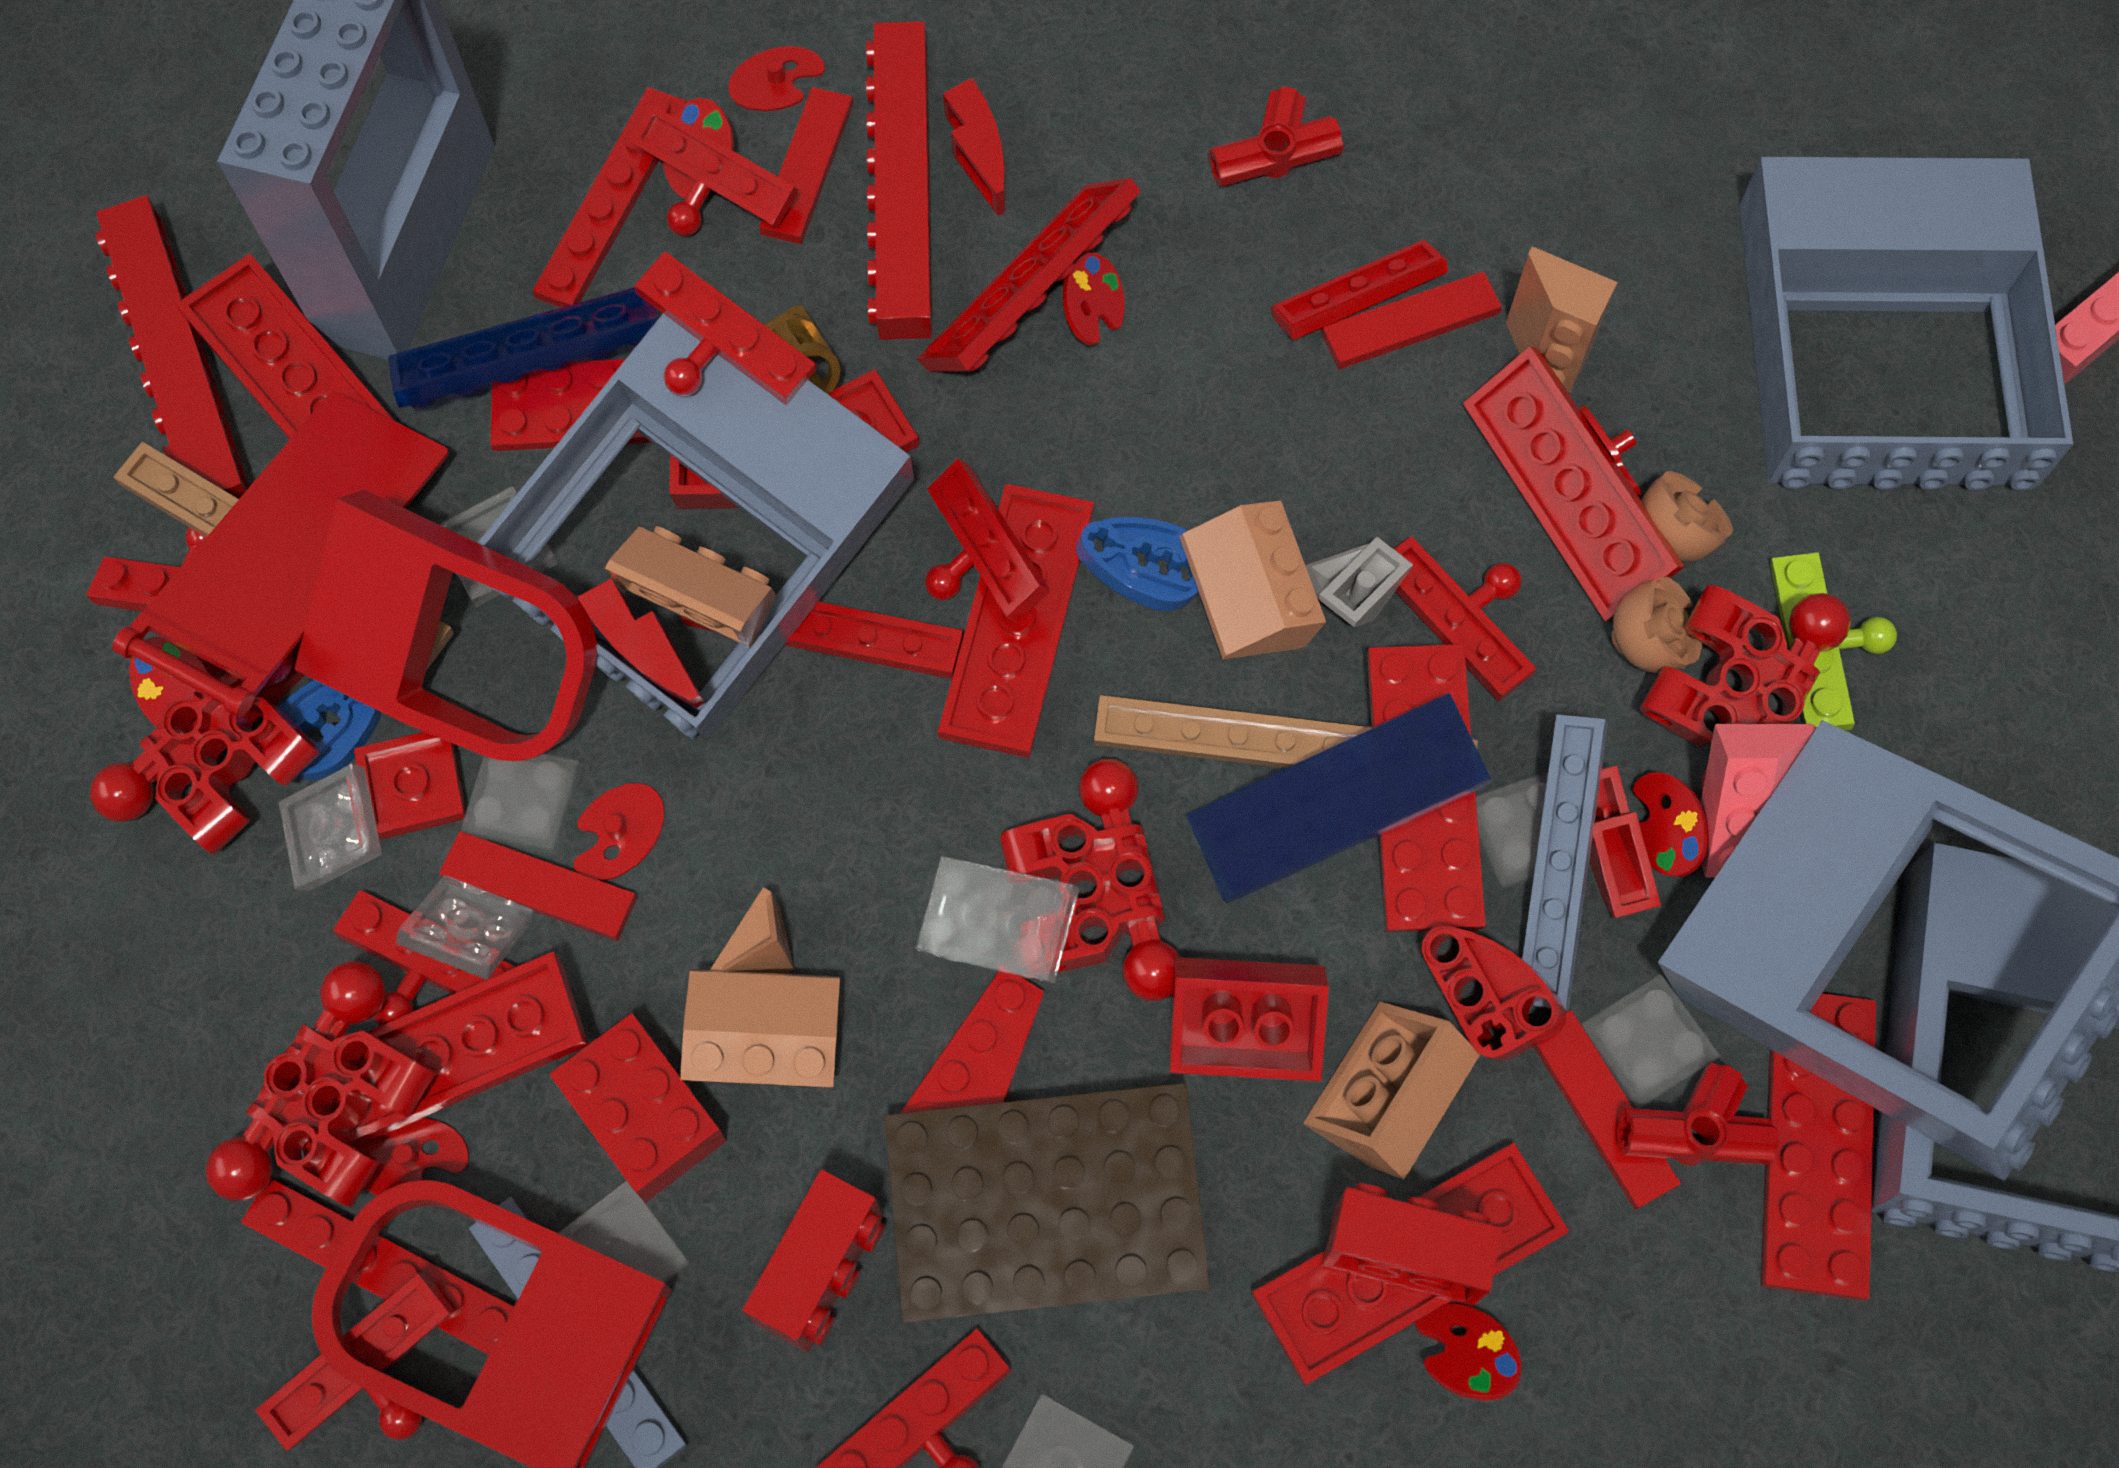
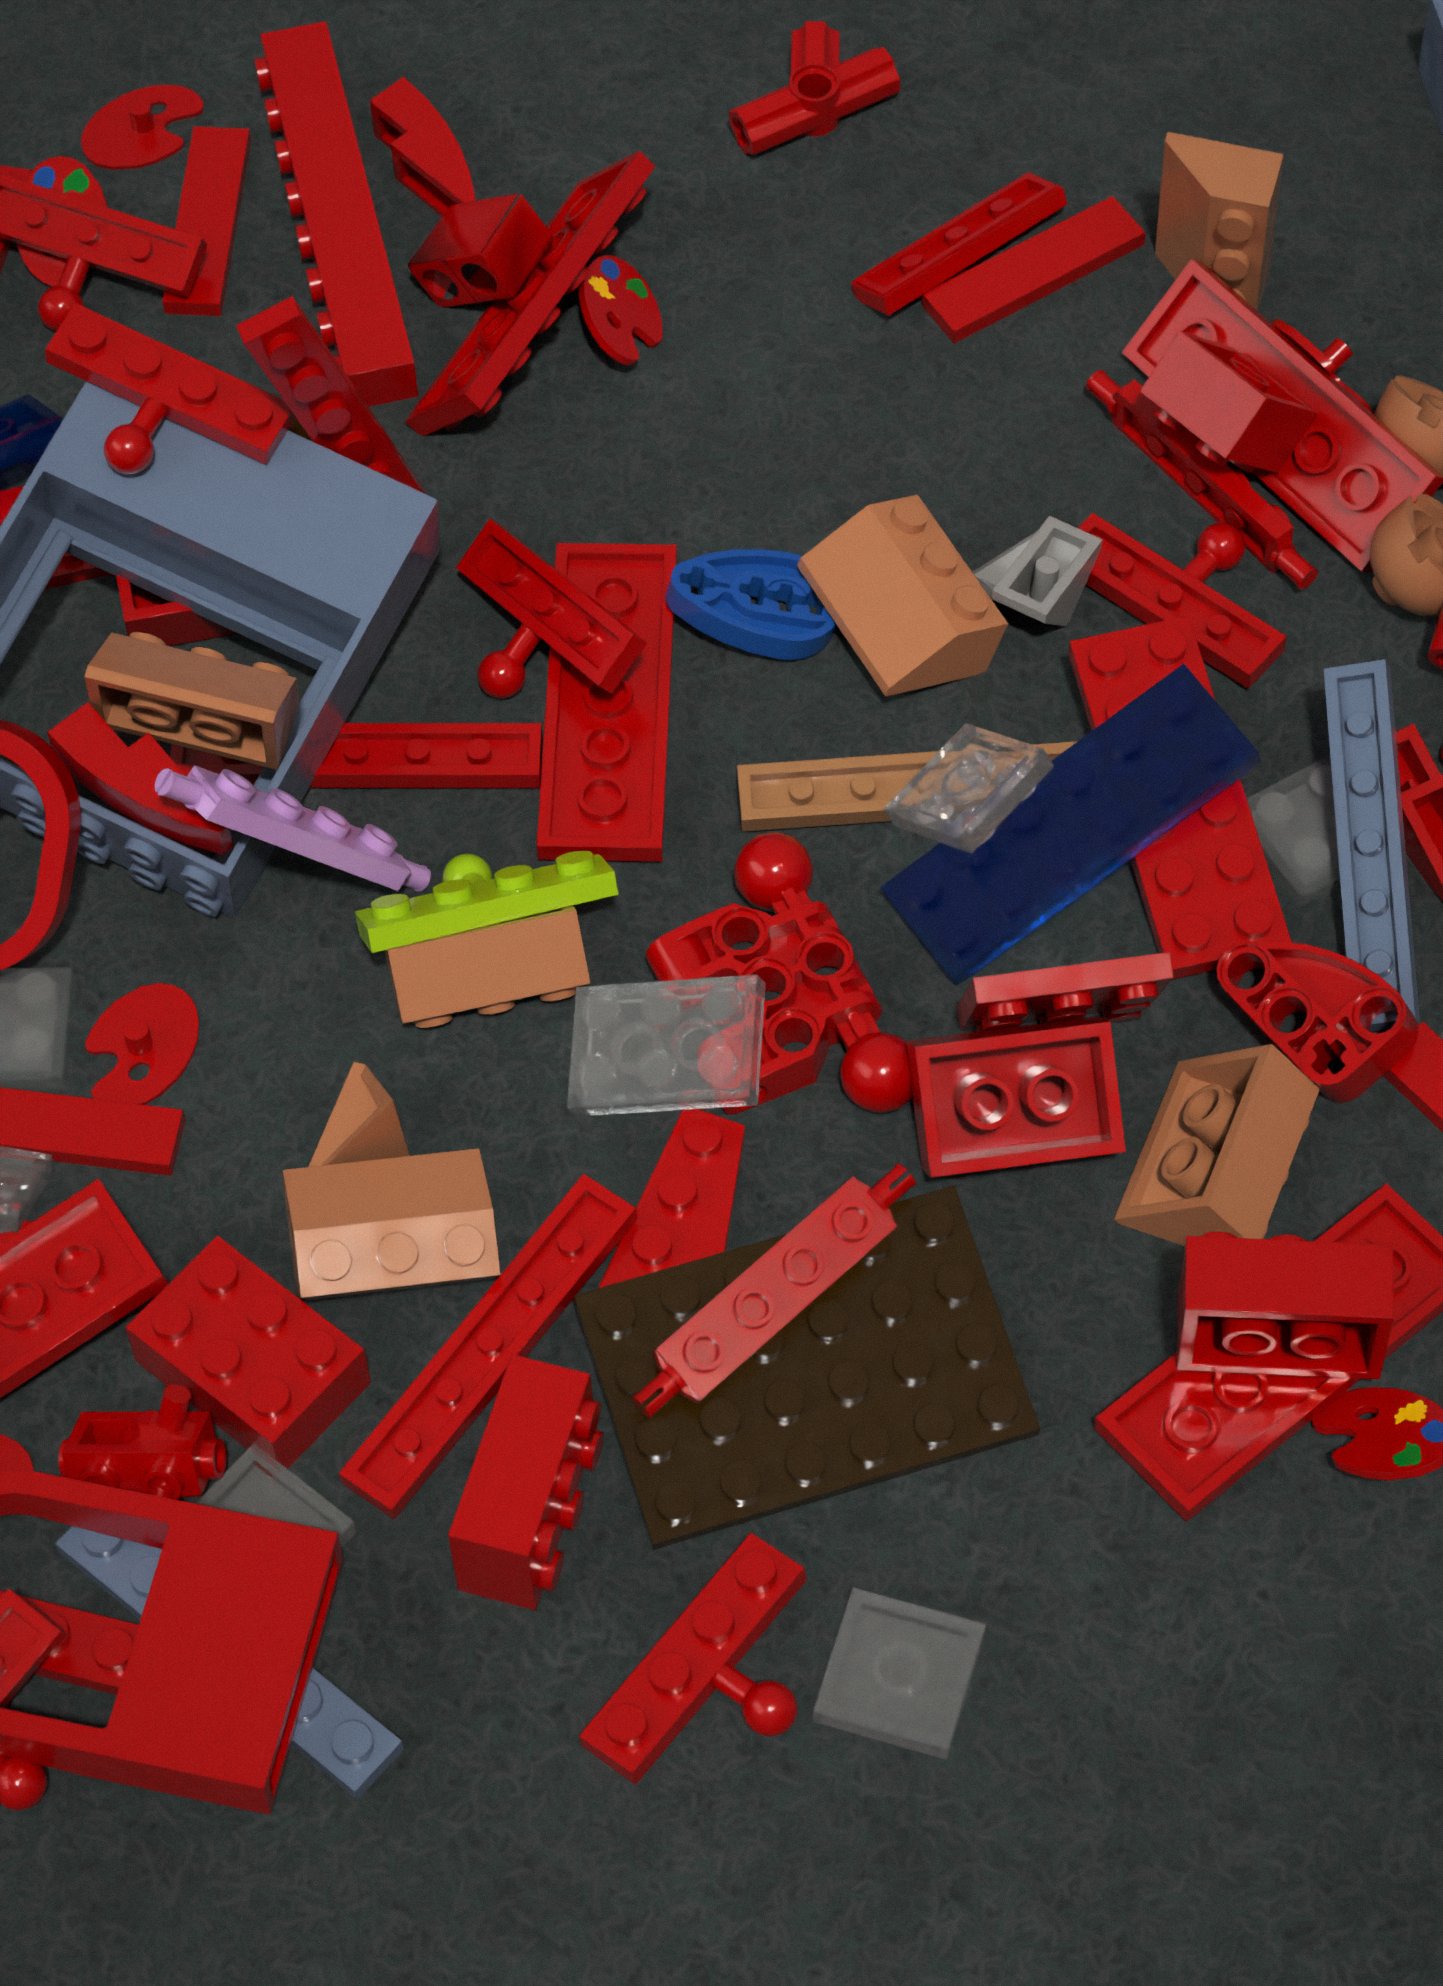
camera: 10 degrees left, 10 degrees down
(543, 1174) = (146, 1451): none -> red brick
(749, 699) = (285, 823): none -> lavender plate
(815, 1136) = (475, 1357): none -> red plate
(840, 368) = (320, 390): none -> red plate
(879, 811) = (489, 967): none -> nougat slope
(885, 776) = (474, 900): none -> lime plate
(986, 221) = (461, 239): none -> red piece
(1031, 1147) = (773, 1290): none -> red plate
(1266, 756) = (969, 787): none -> clear plate
(1302, 948) = (1067, 992): none -> red plate
(1496, 509) = (1215, 487): none -> red plate
(1531, 473) = (1227, 404): none -> red brick

